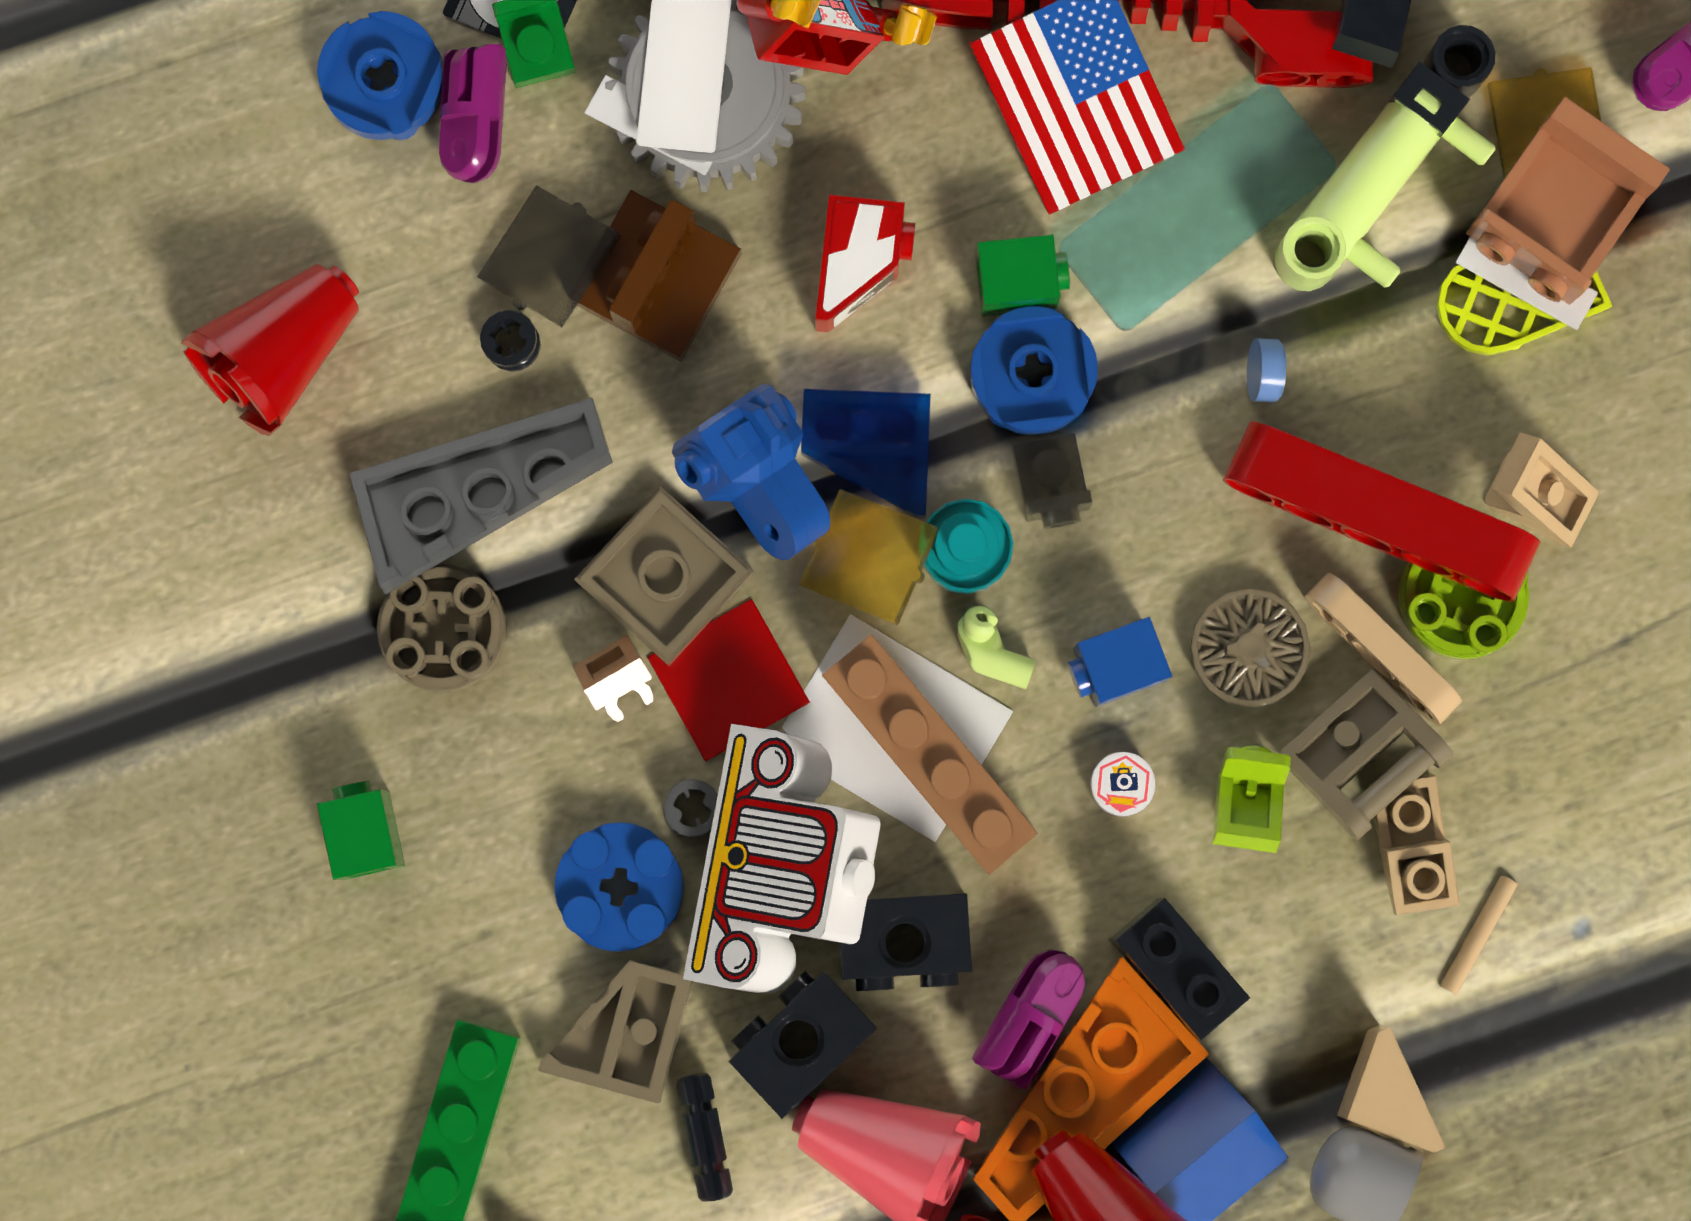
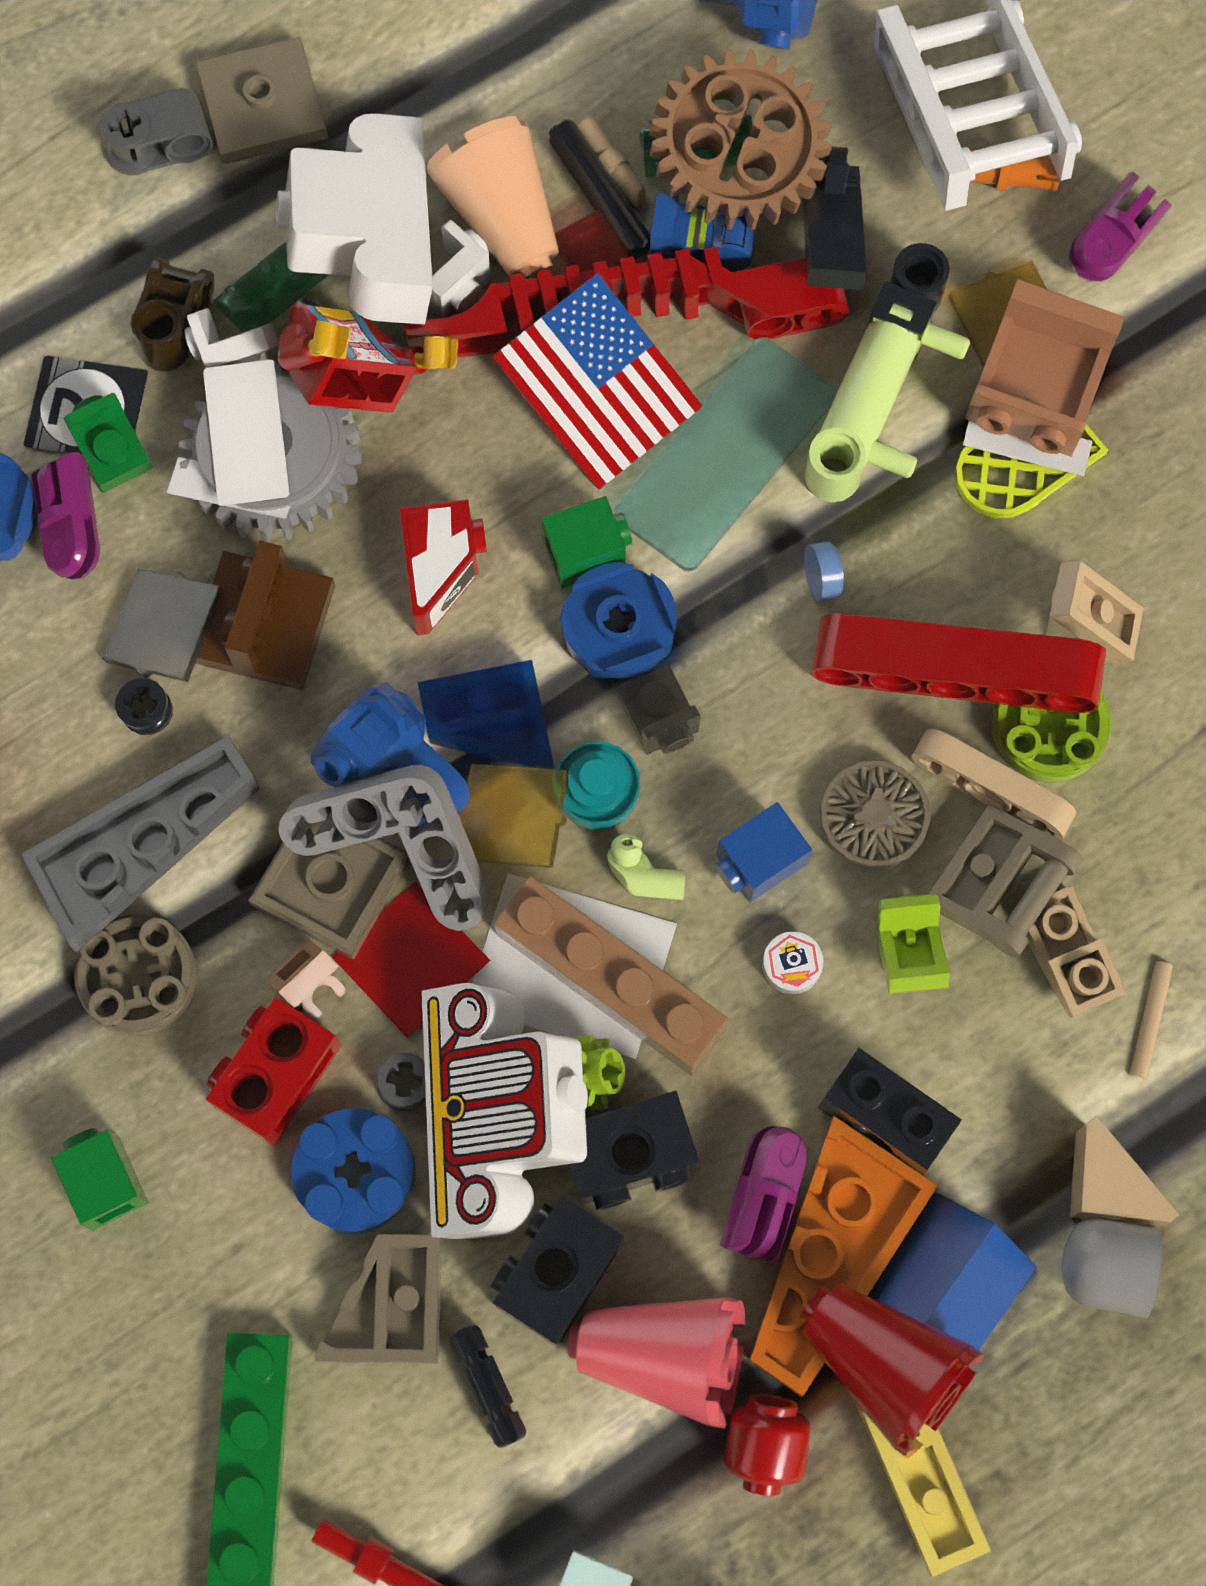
camera: 15 degrees left, 10 degrees down
(571, 779) = (287, 1078): none -> red brick
(745, 536) = (399, 816): none -> light grey beam
(896, 850) = (601, 1069): none -> lime gear

